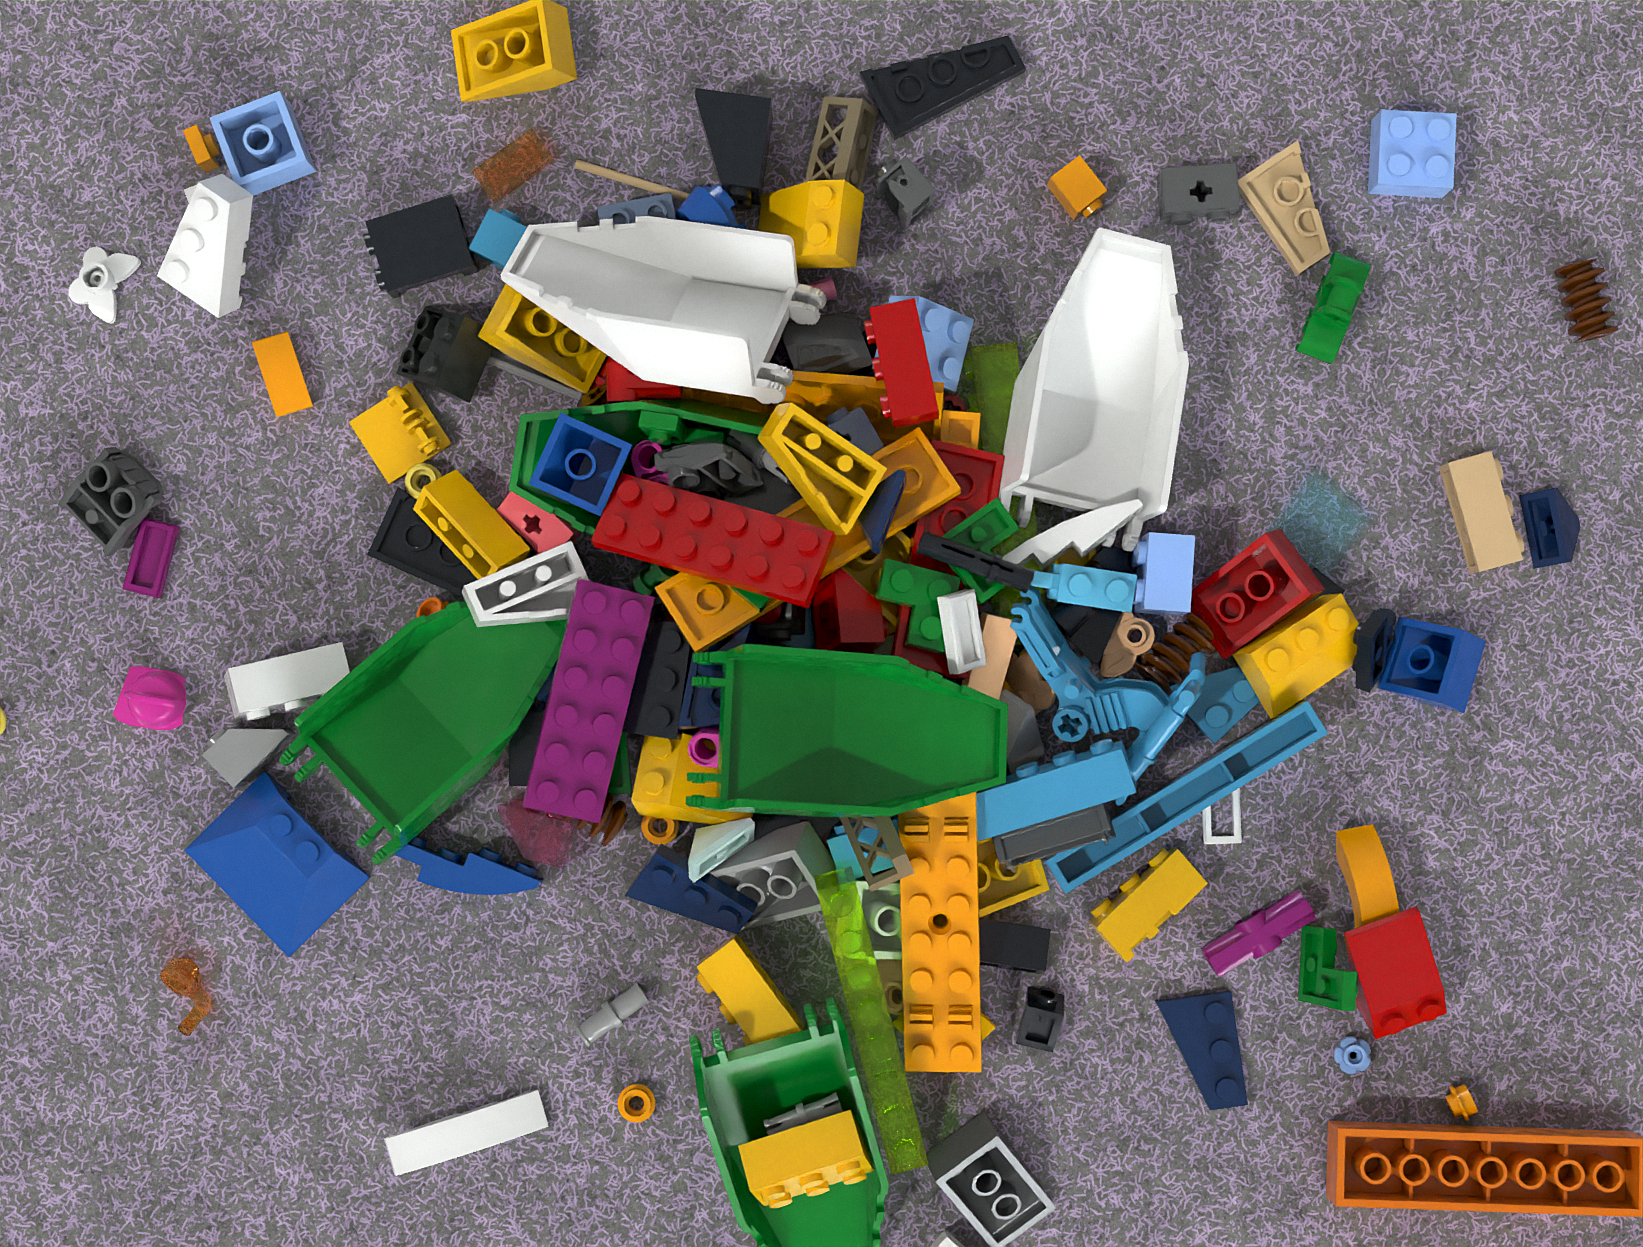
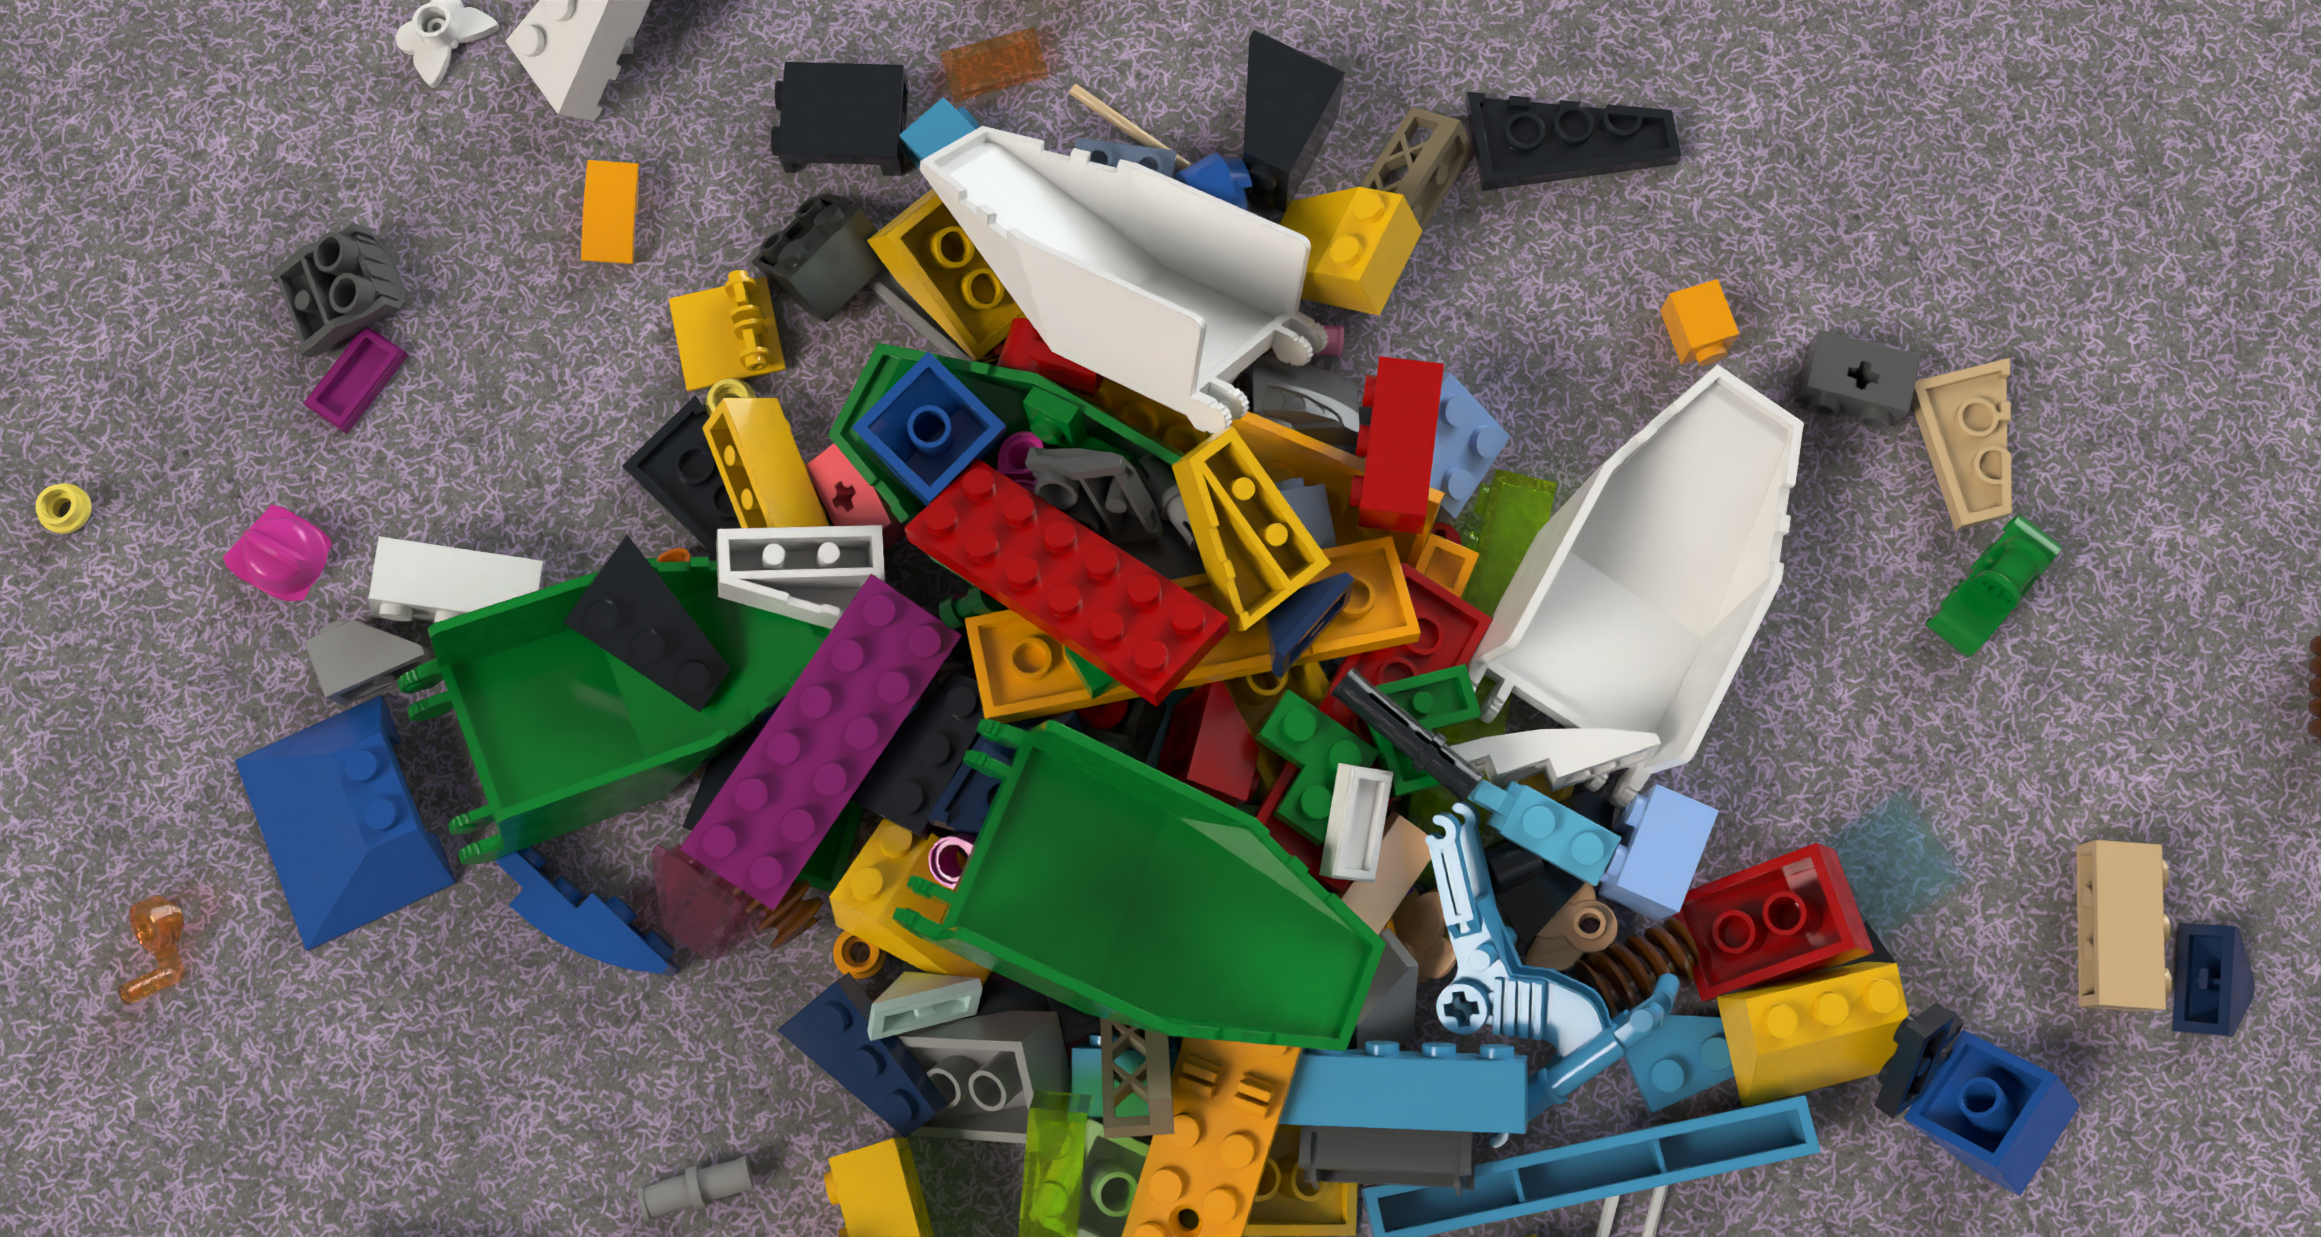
camera: 20 degrees right, 10 degrees down
(436, 665) = (647, 628): none -> black wing
(906, 190) = (1477, 247): dark grey hinge -> none
(1412, 153) = (2159, 424): light blue brick -> none

